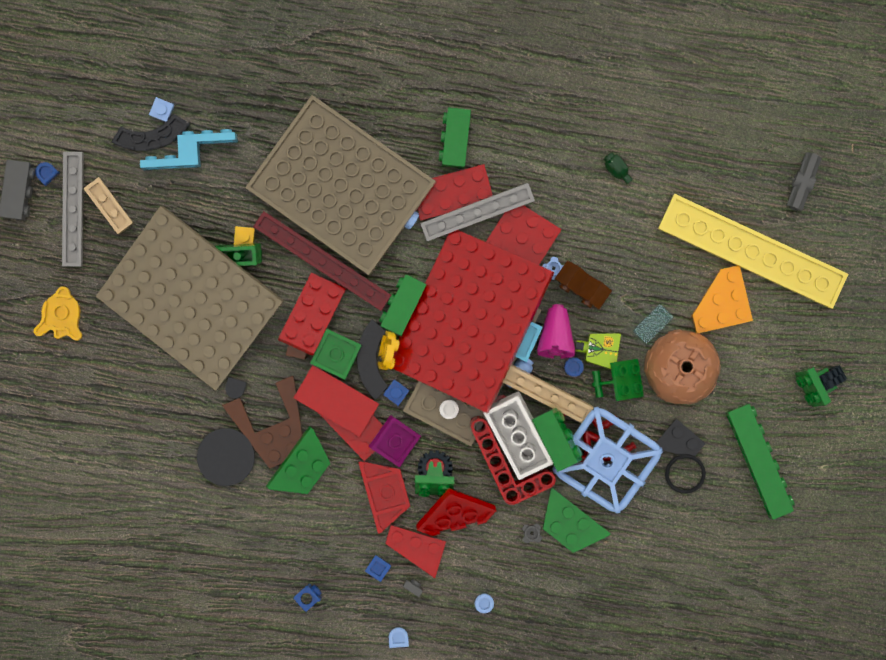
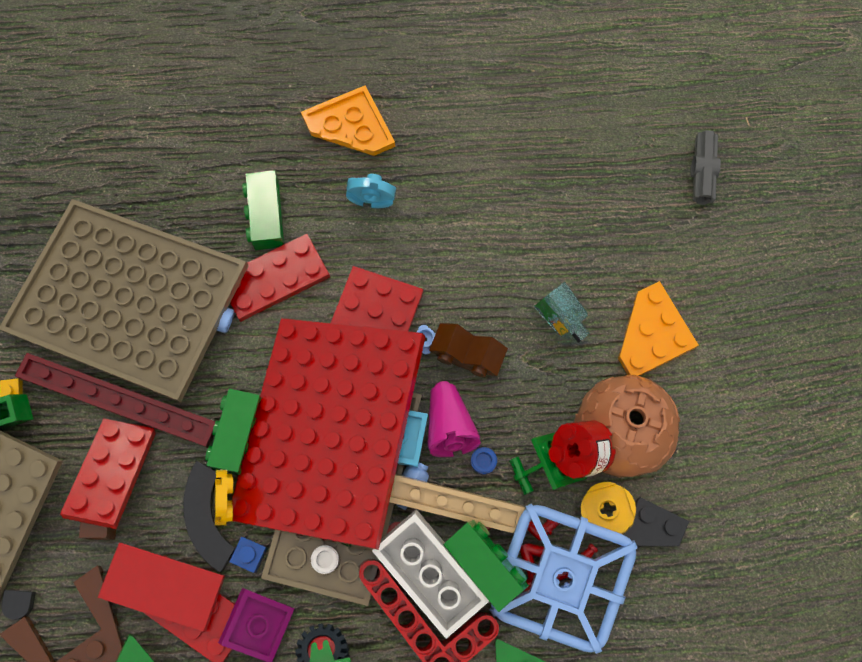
camera: 10 degrees left, 15 degrees down
(336, 354) = (151, 519): green panel -> none
(477, 211) = (309, 290): light grey plate -> none
(537, 77) = (350, 122): none -> light orange plate
(542, 145) = (371, 191): none -> medium azure plate
(600, 349) = (512, 427): lime torso -> none
(617, 167) = (474, 201): dark green plant -> none
(643, 379) = (582, 449): none -> red brick
(653, 323) = (572, 380): clear light blue tile -> none
(655, 268) = (564, 312): none -> clear light blue torso
(659, 414) = (616, 496): none -> yellow plate
(681, 457) = (693, 590): black tyre -> none
(753, 251) = (672, 261): light yellow plate -> none
(759, 461) = (771, 530): green brick -> none
(819, 383) = (813, 404): green plate -> none

